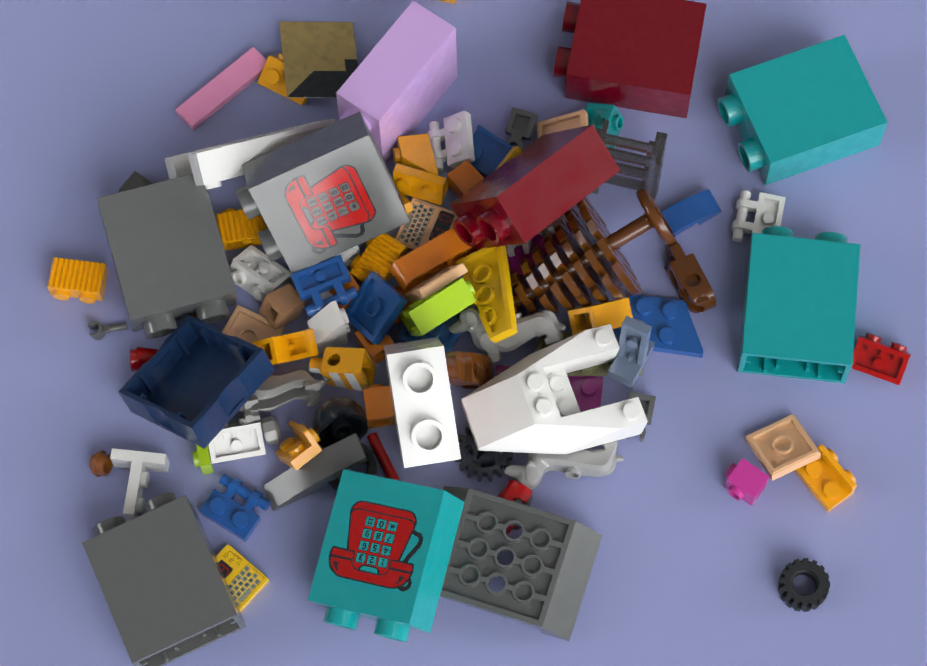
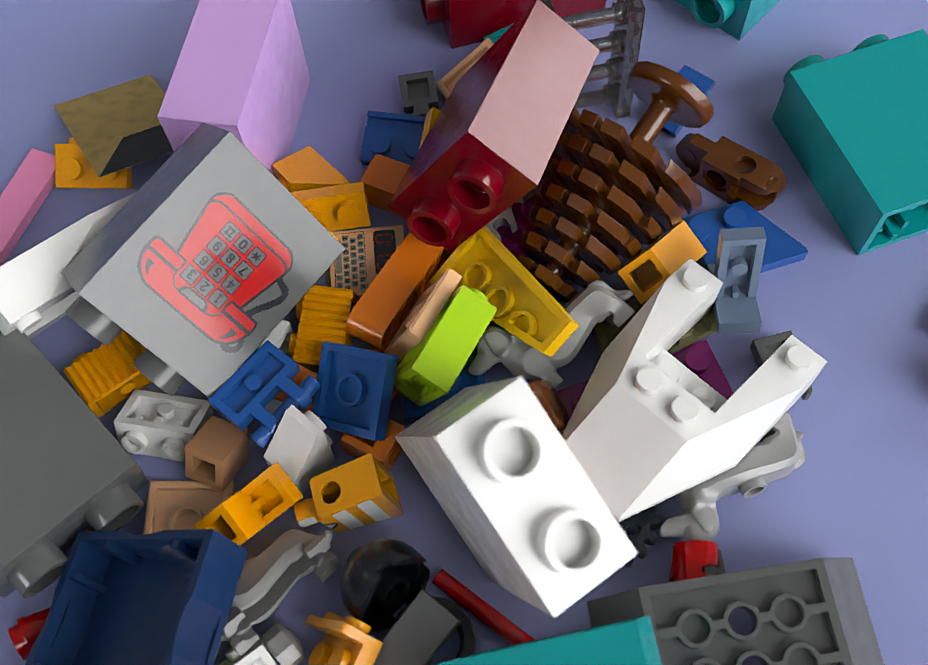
camera: 25 degrees left, 5 degrees down
(379, 406) = (427, 527): orange brick -> none
(457, 137) = (351, 138): white plate -> none
(767, 212) = (768, 63): white plate -> none

